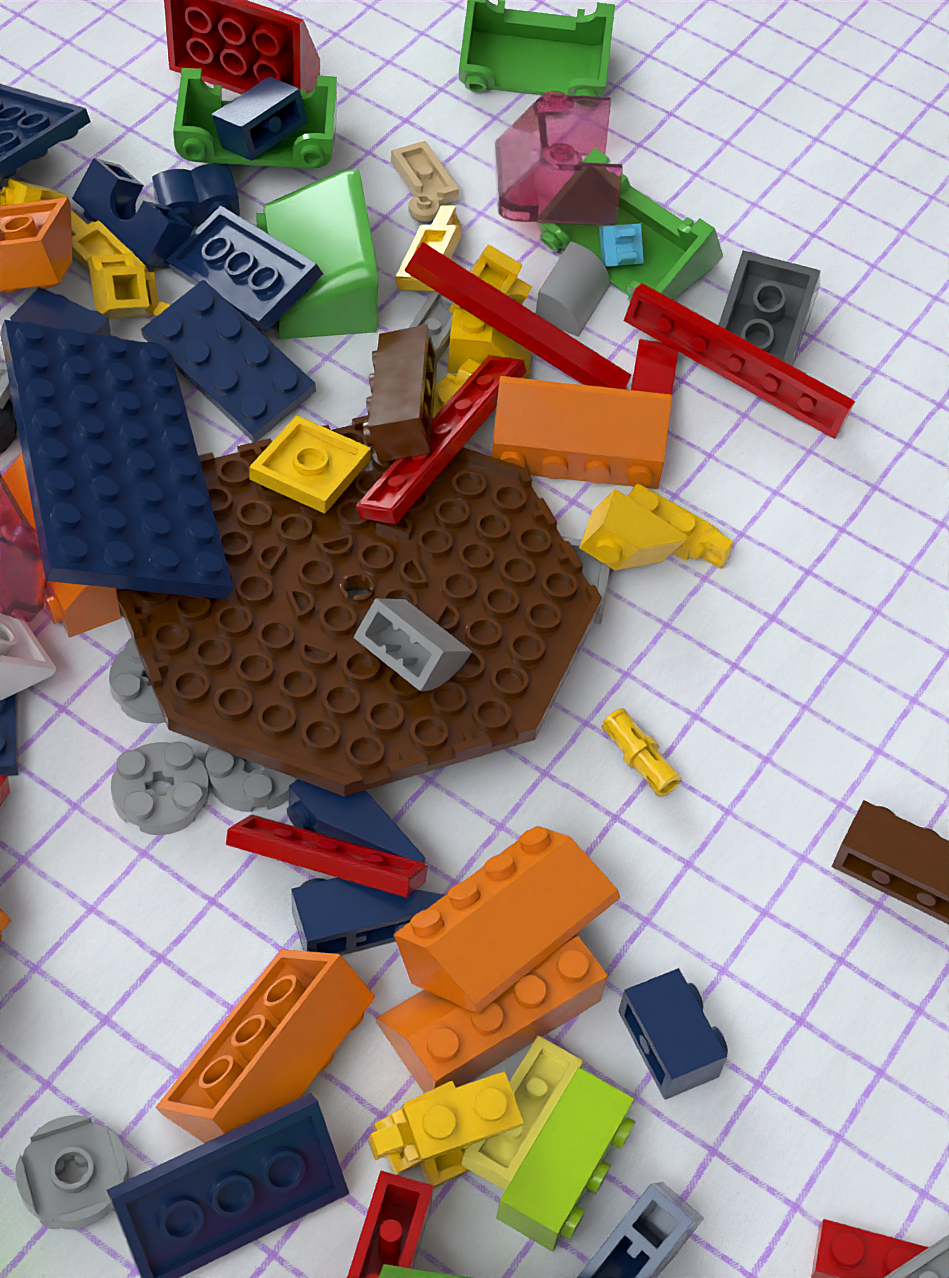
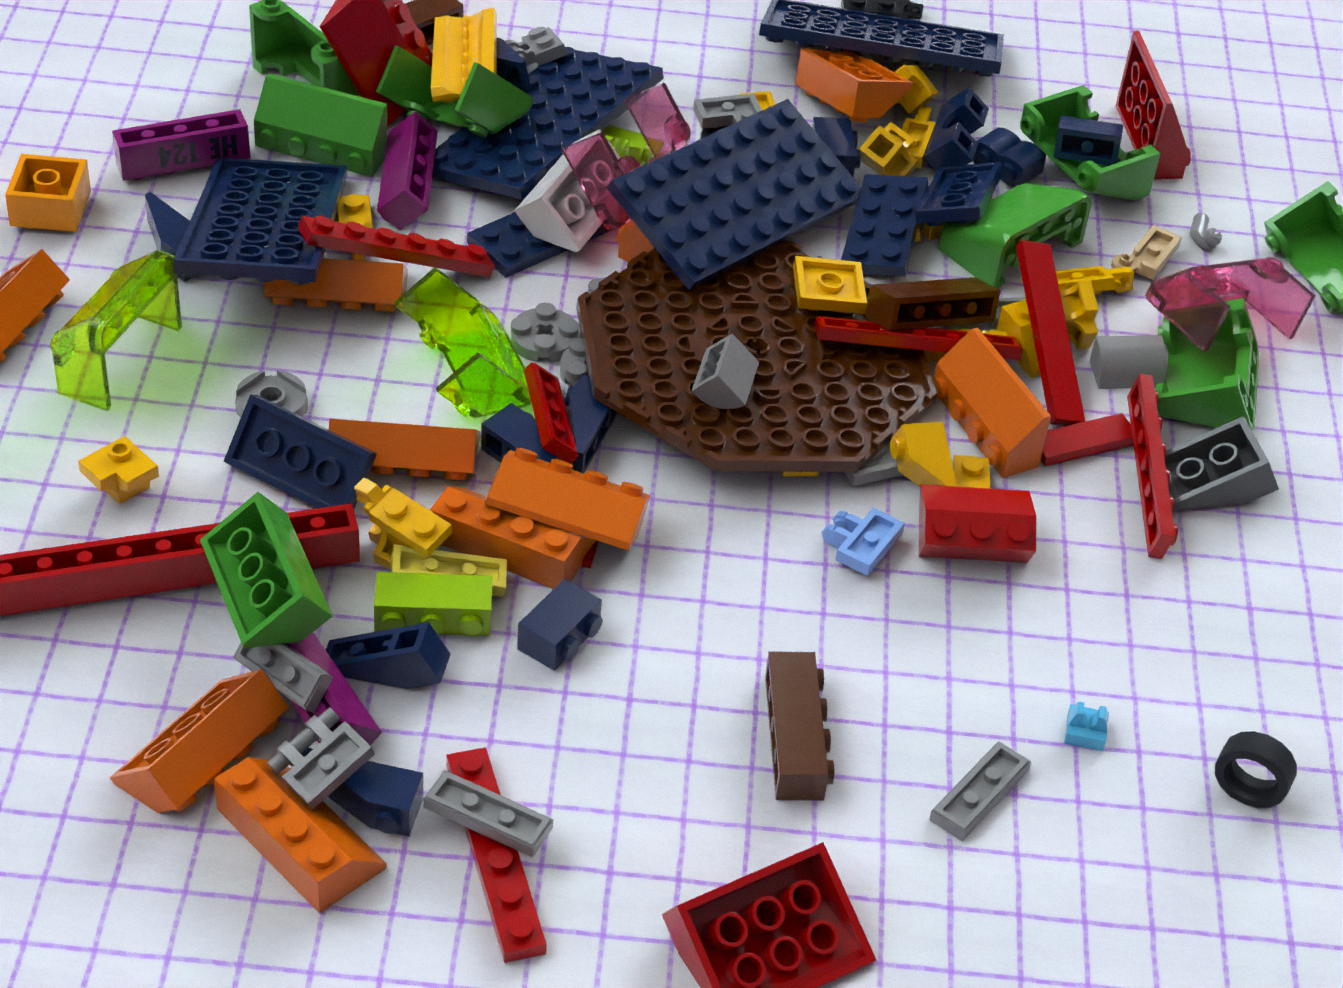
camera: 60 degrees right, 10 degrees down
(159, 881) = (474, 343): none -> clear neon green windscreen
(418, 125) = (1205, 238): none -> light grey arm
(621, 244) = (1195, 367): medium azure tile -> none
(641, 752) = (755, 551): yellow pin -> none
(699, 656) = (862, 541): none -> light blue hinge
(743, 547) = (976, 523): none -> red slope

